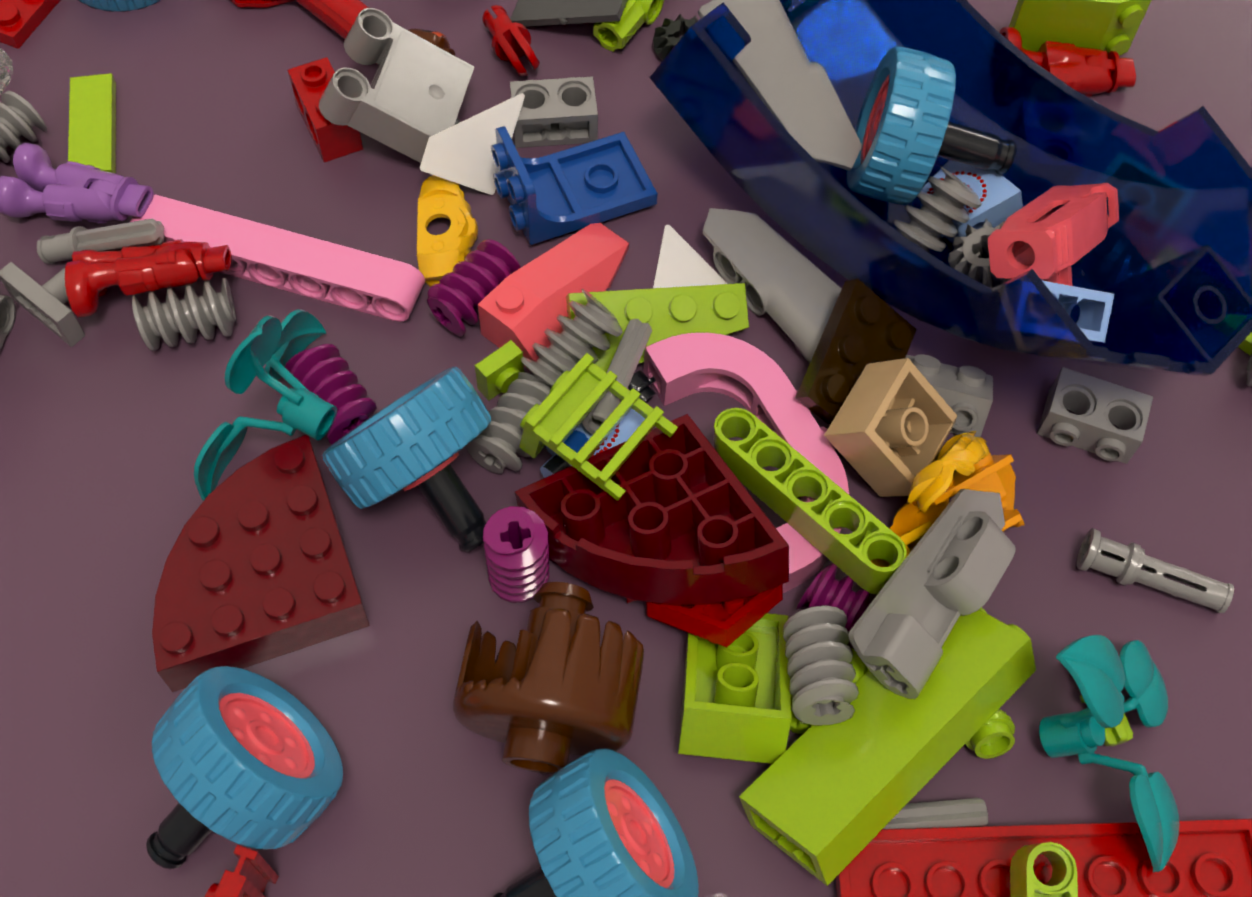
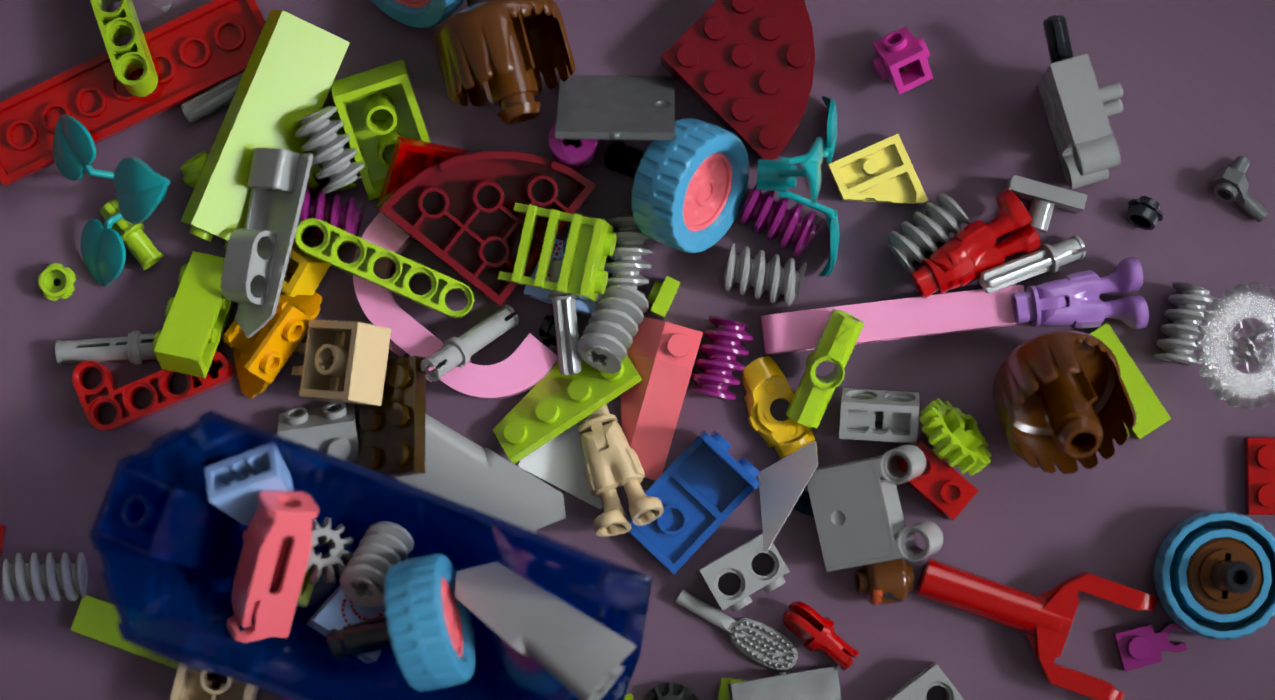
camera: 160 degrees right, 25 degrees up
(92, 491) = (902, 60): none -> dark pink brick
(155, 94) = (1062, 401): none -> reddish brown piece
(195, 396) = (878, 175): none -> light yellow wing
(280, 122) = (955, 436): none -> lime gear
(342, 174) = (879, 415): none -> light grey brick
(369, 222) = (814, 390): none -> lime piece
(381, 345) = (763, 275): none -> light grey piece
(446, 552) = (616, 107): none -> dark grey piece
(568, 60) = (749, 636): none -> light grey piece
(636, 238) = (614, 465): none -> tan piece
(754, 388) = (458, 350): none -> light grey pin
(957, 455) = (282, 356): yellow piece -> none
(1054, 550) = (194, 318): none -> lime brick
(1057, 506) = (123, 397): none -> red beam
(1217, 670) = (49, 275): none -> lime plate

